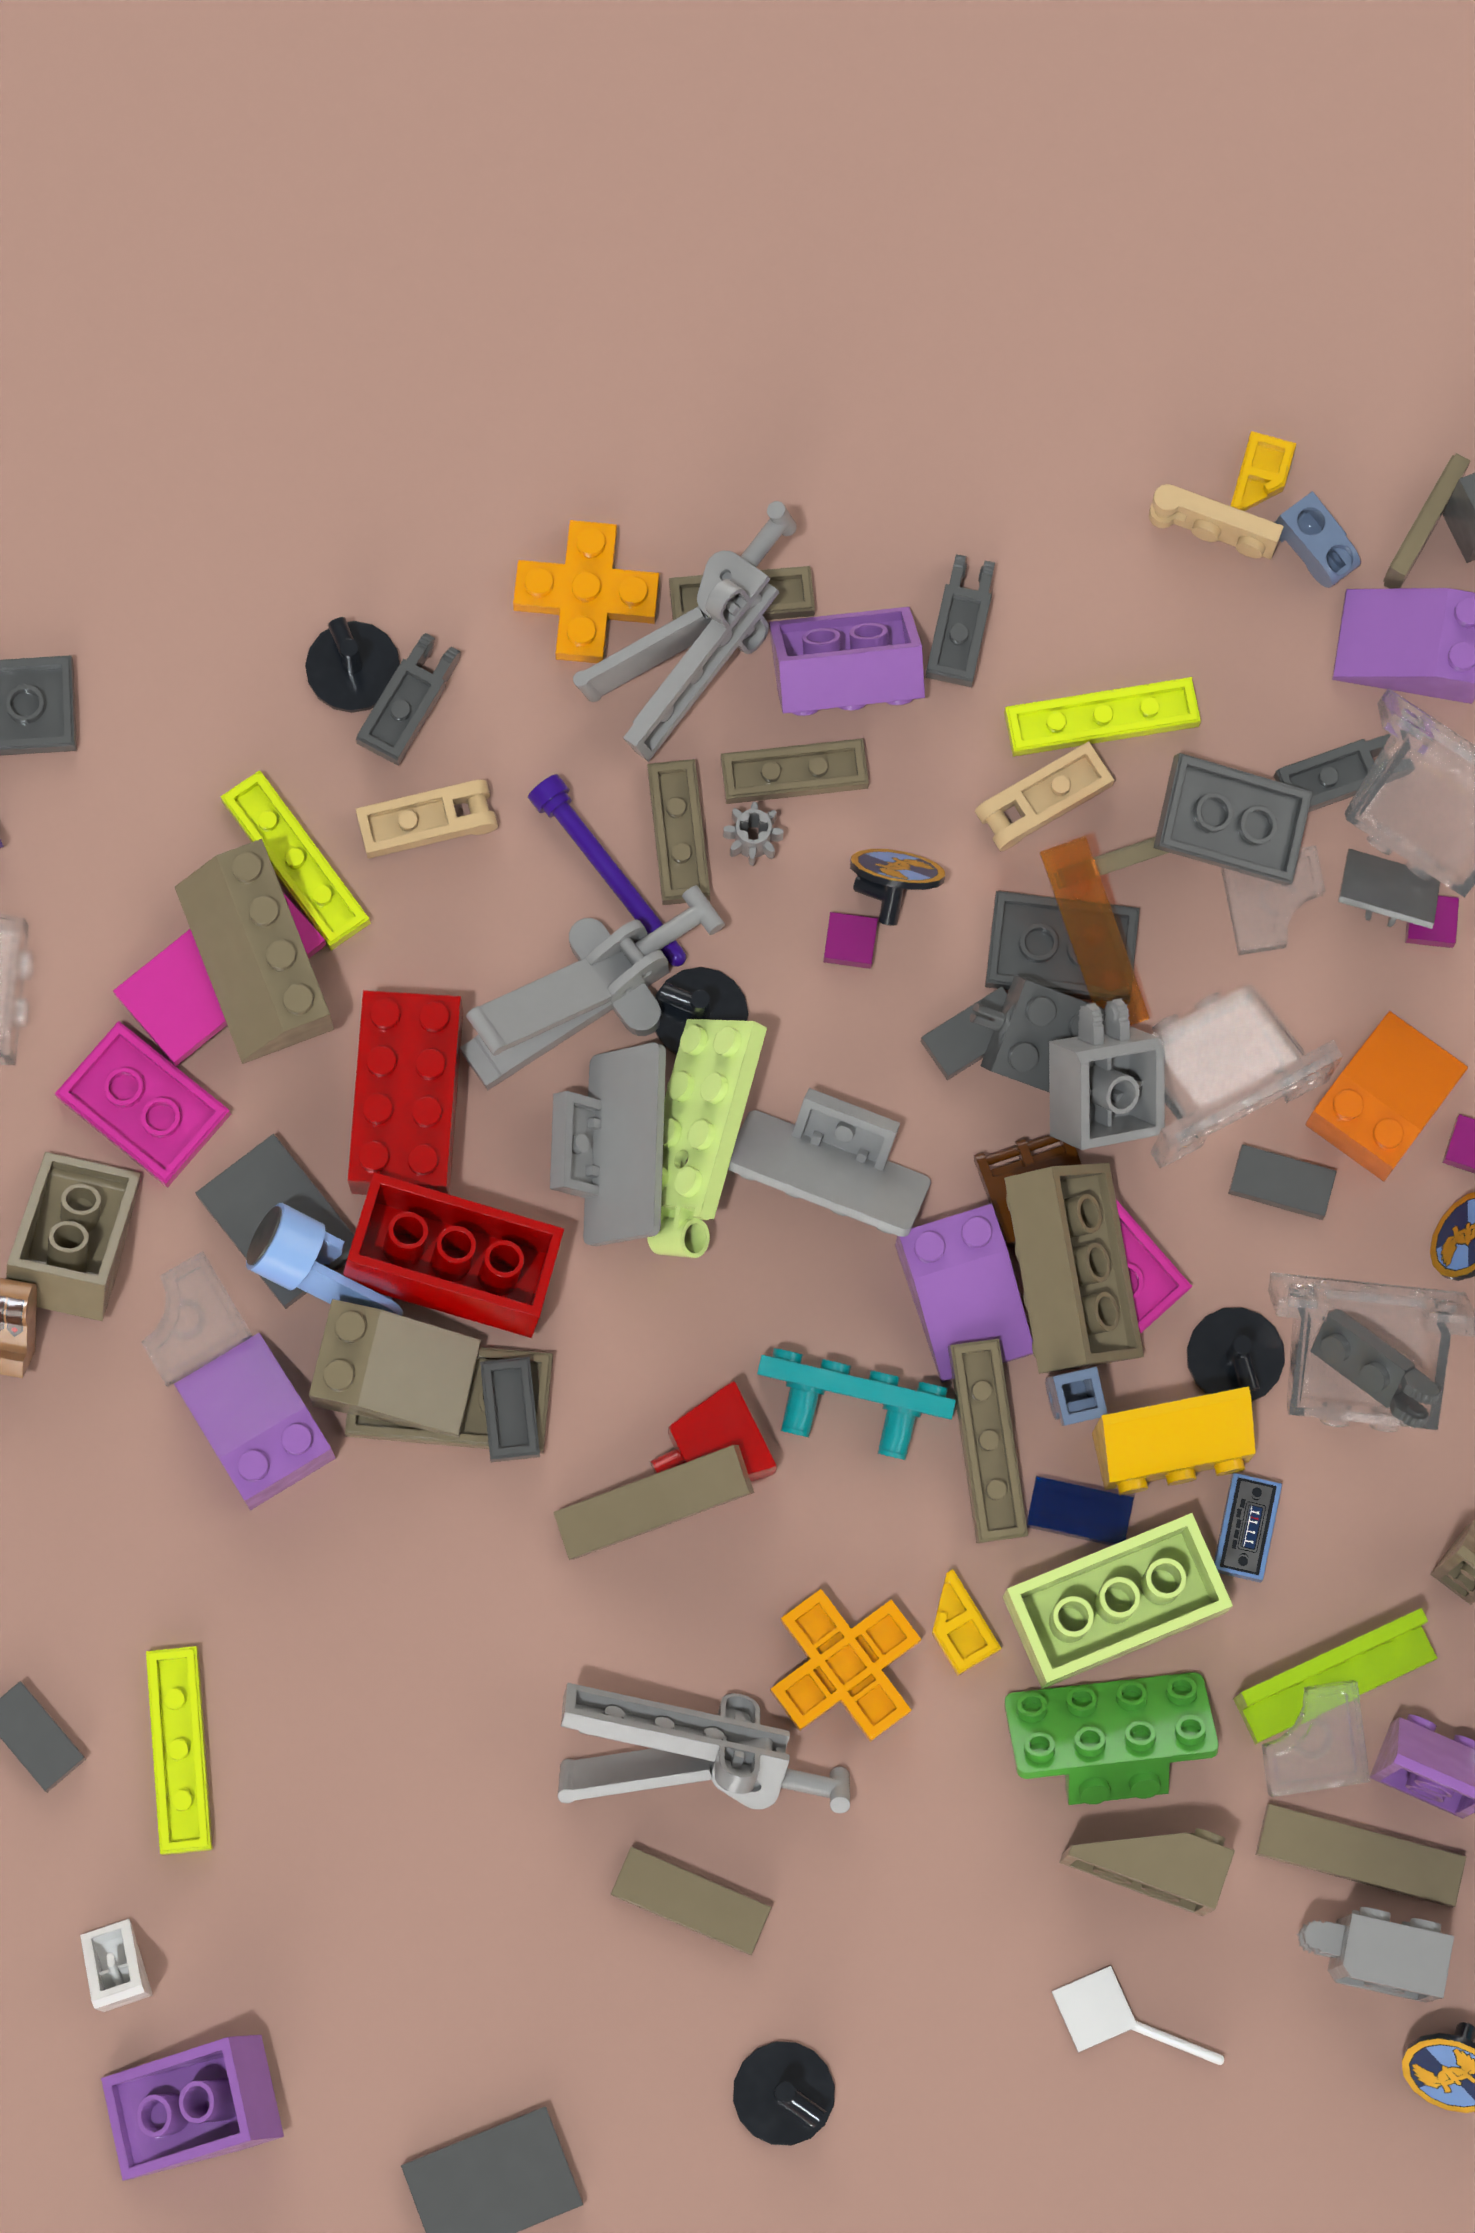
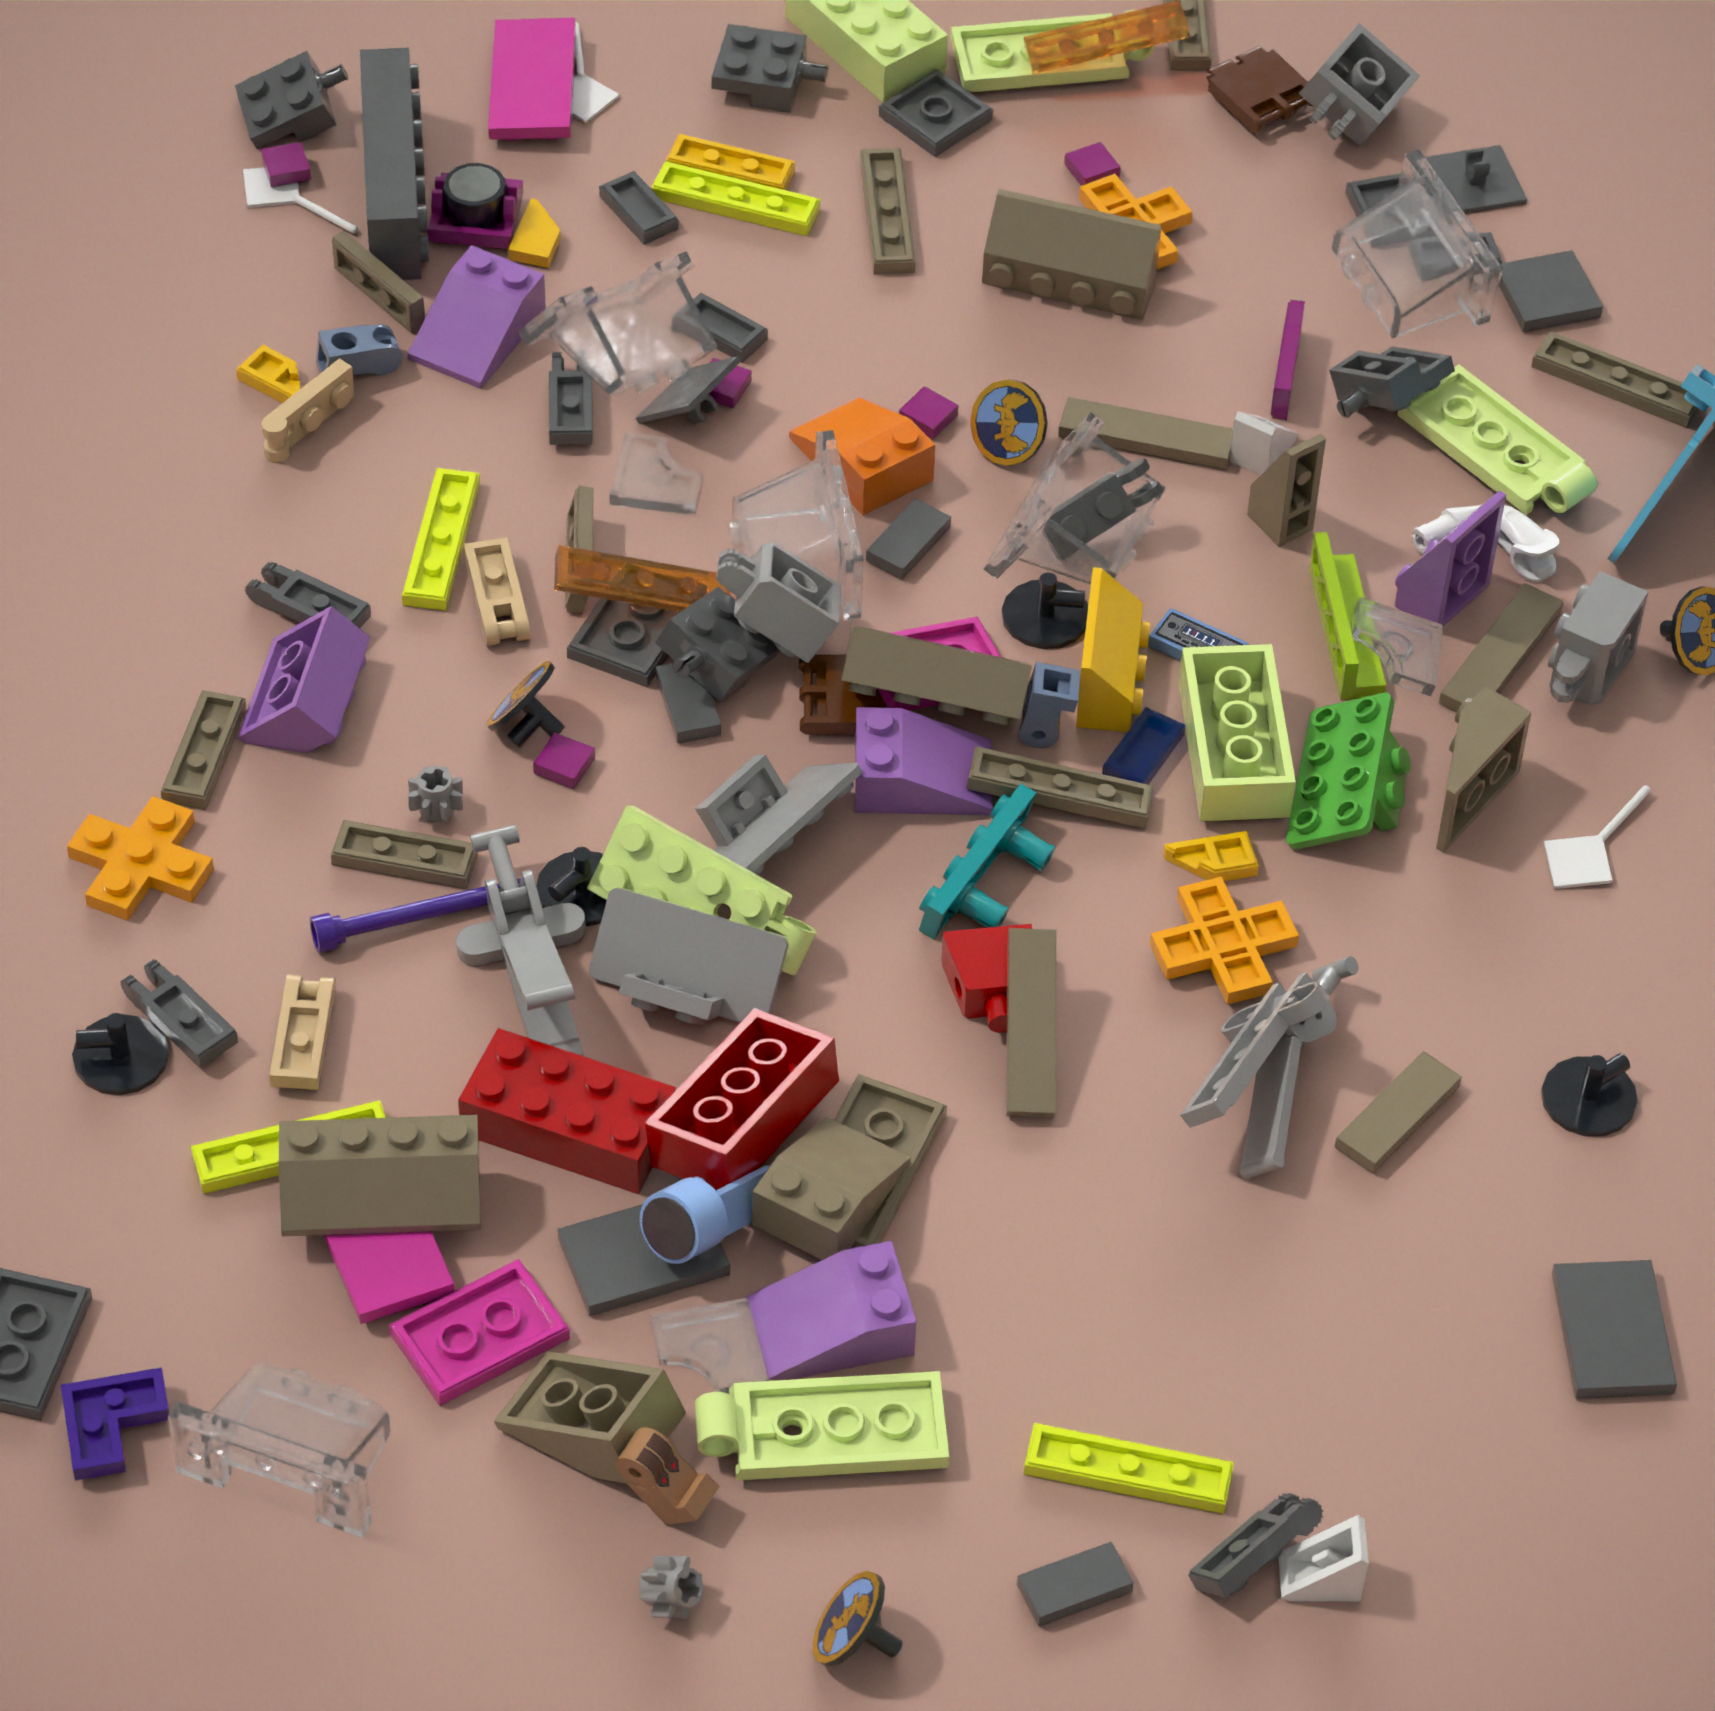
camera: 70 degrees left, 25 degrees down
(119, 1895) = (1255, 1544): none -> dark grey hinge
(136, 1475) = (844, 1424): none -> yellowish green hinge
(192, 2106) = (1477, 1538): medium lavender slope -> none
(510, 1409) = (900, 1113): dark grey tile -> none
(727, 618) = (218, 730): light grey piece -> none
(794, 771) = (387, 758): dark tan tile -> none
(1232, 819) = (584, 460): dark grey tile -> none

